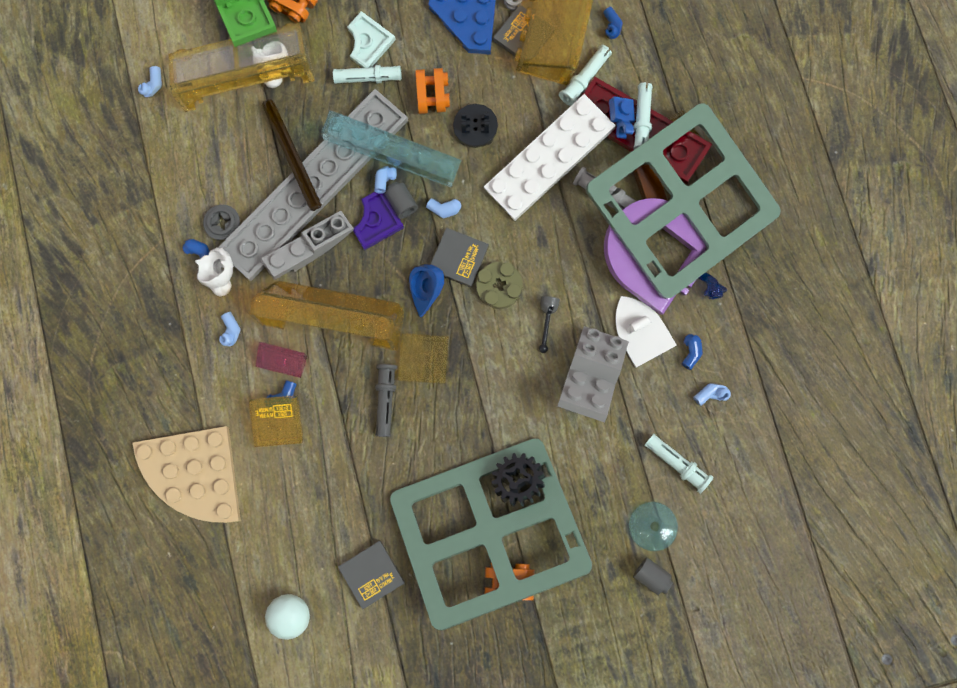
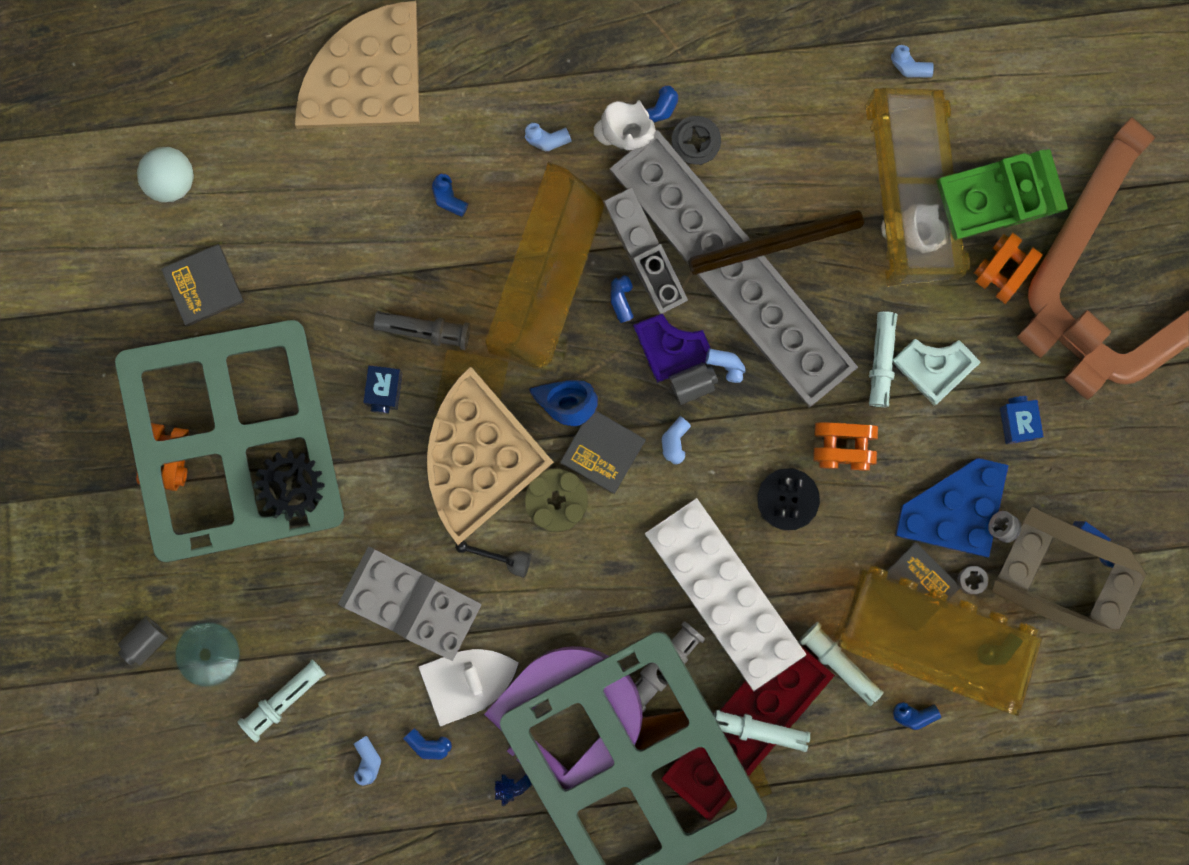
camera: 90 degrees right, 5 degrees up
(276, 421) = (414, 185): clear yellow tile -> none
(280, 359) = (496, 200): clear pink slope -> none
(345, 260) = (618, 298): none -> blue arm
(390, 148) = (761, 377): clear light blue brick -> none
(434, 422) = (382, 389): none -> dark blue brick
(475, 344) = (478, 456): none -> tan plate
(623, 114) = (770, 702): blue plate -> none

